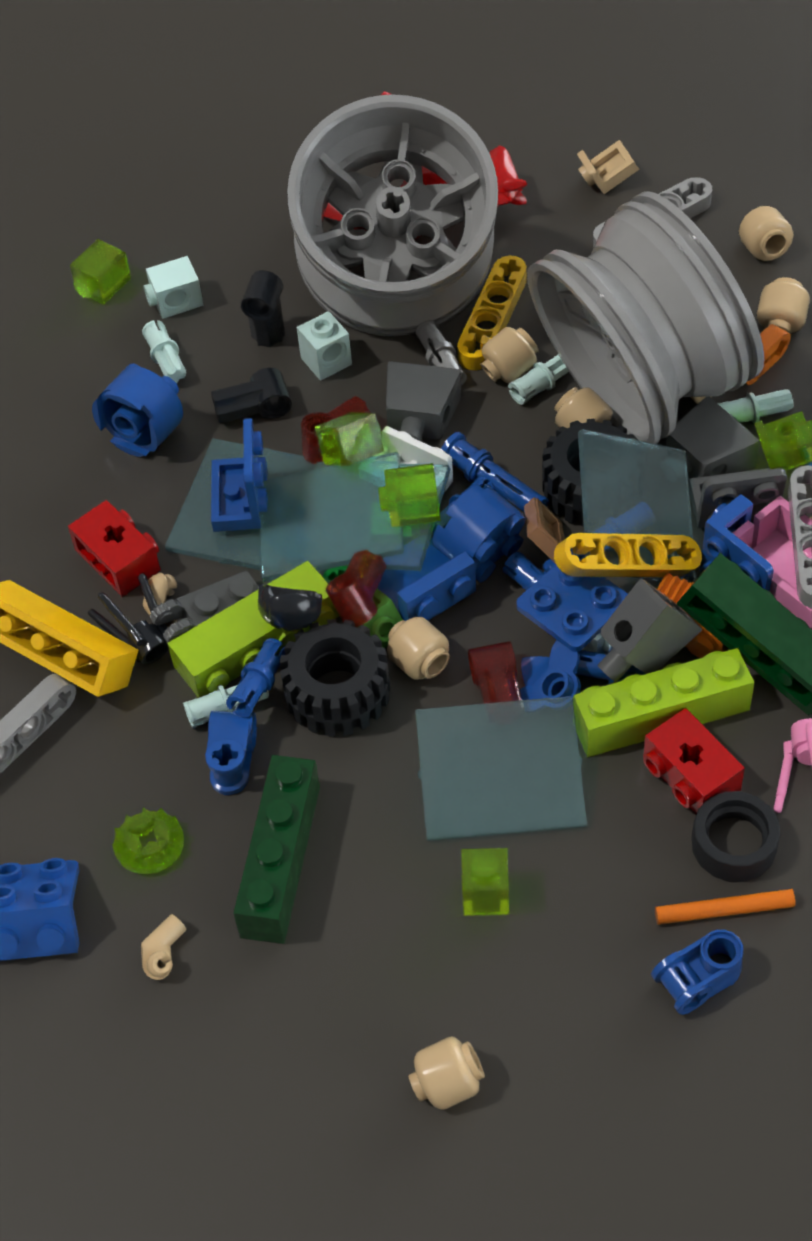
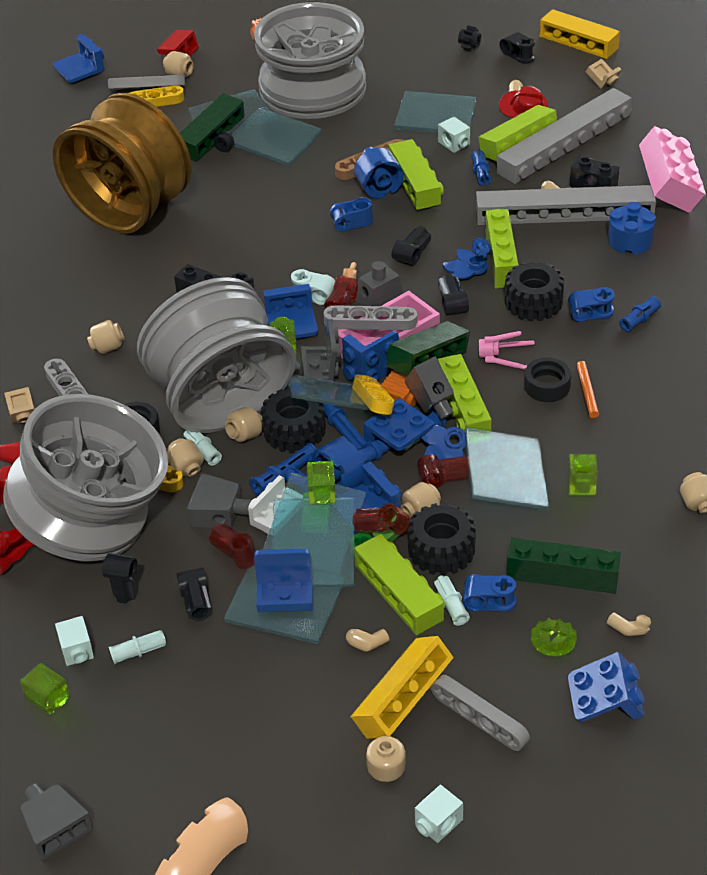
camera: 90 degrees left, 10 degrees down
(115, 547) = (322, 662): red brick -> none
(138, 410) = (205, 646): blue brick -> none
(142, 635) = (400, 639): black plant -> none
(202, 604) = (380, 605): dark grey hinge -> none
(256, 678) = (432, 567): blue pin -> none
(288, 607) = (403, 545): black hair -> none
(324, 345) = (156, 550): light aqua brick -> none
(349, 438) = (258, 523): clear neon green brick -> none
(439, 351) = (171, 495): light grey pin -> none
(543, 527) = (350, 433): medium nougat tile -> none
(691, 761) = (504, 390): red brick -> none
(693, 976) = (629, 394): blue piece -> none

